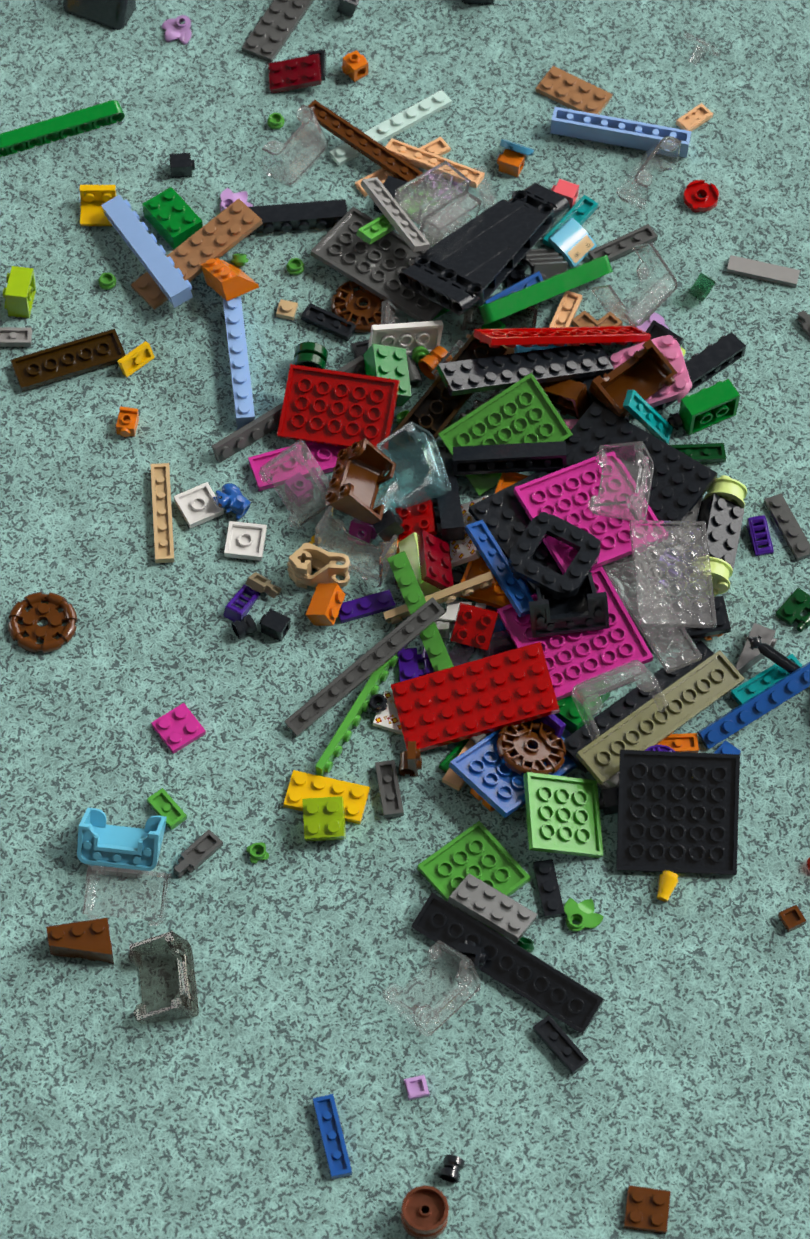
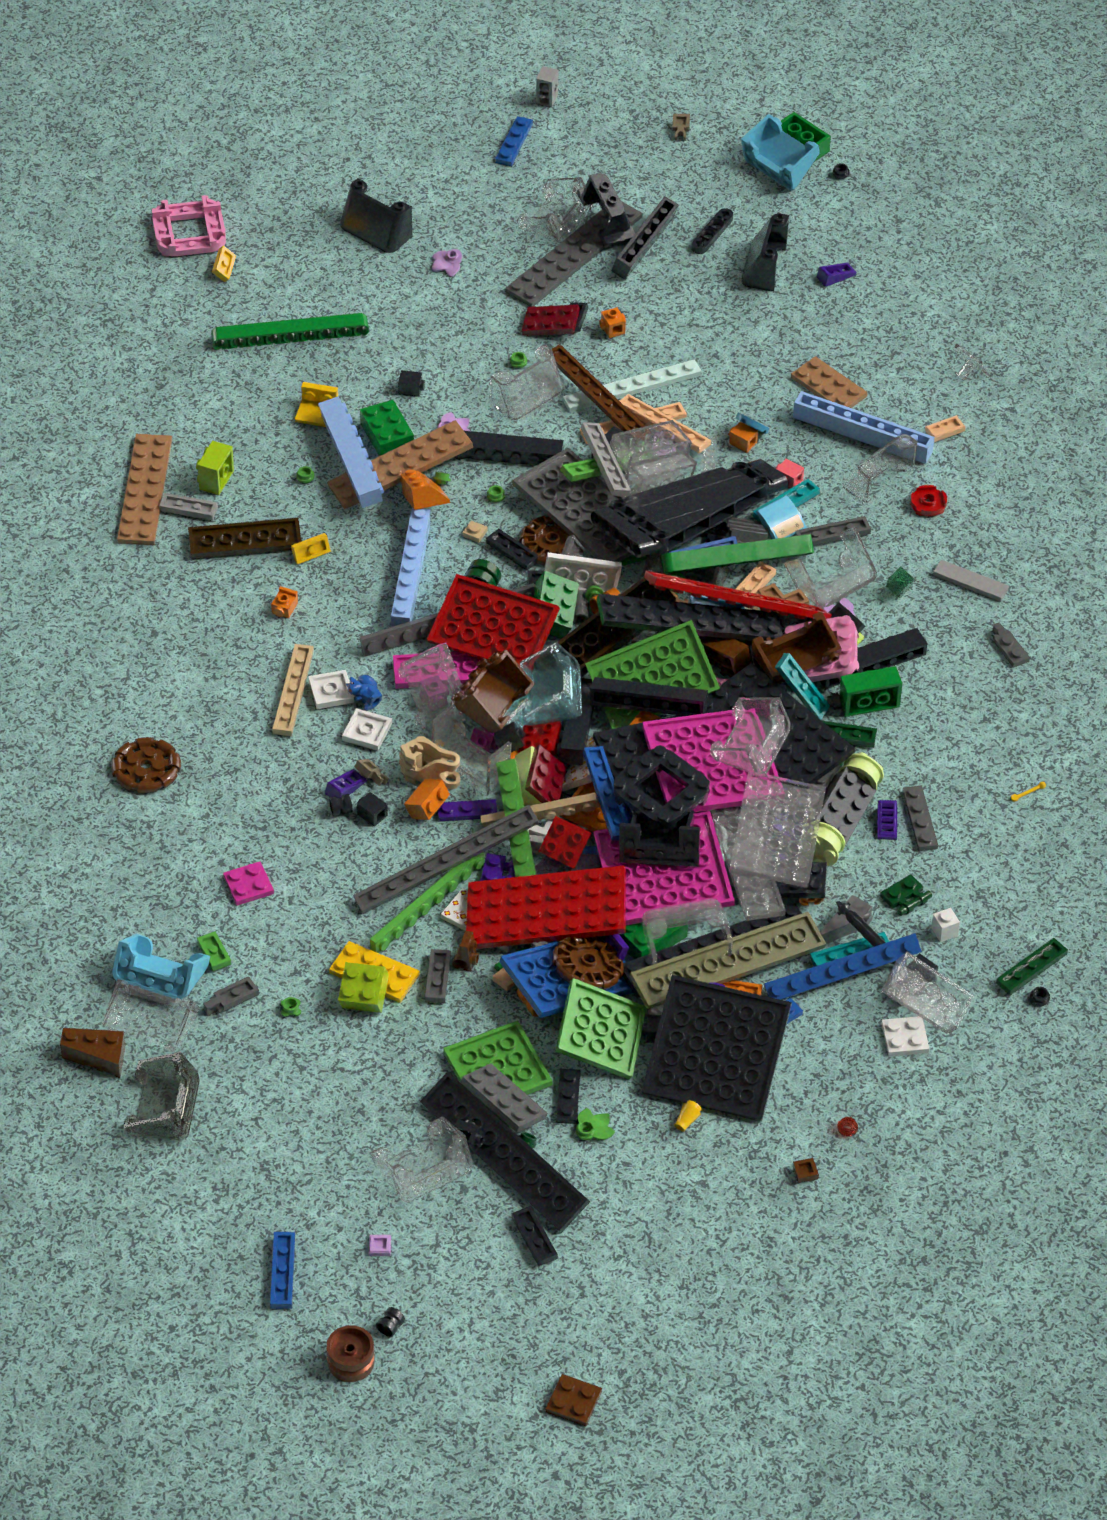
camera: 15 degrees right, 10 degrees down
(375, 699) = (450, 896): black plate -> none

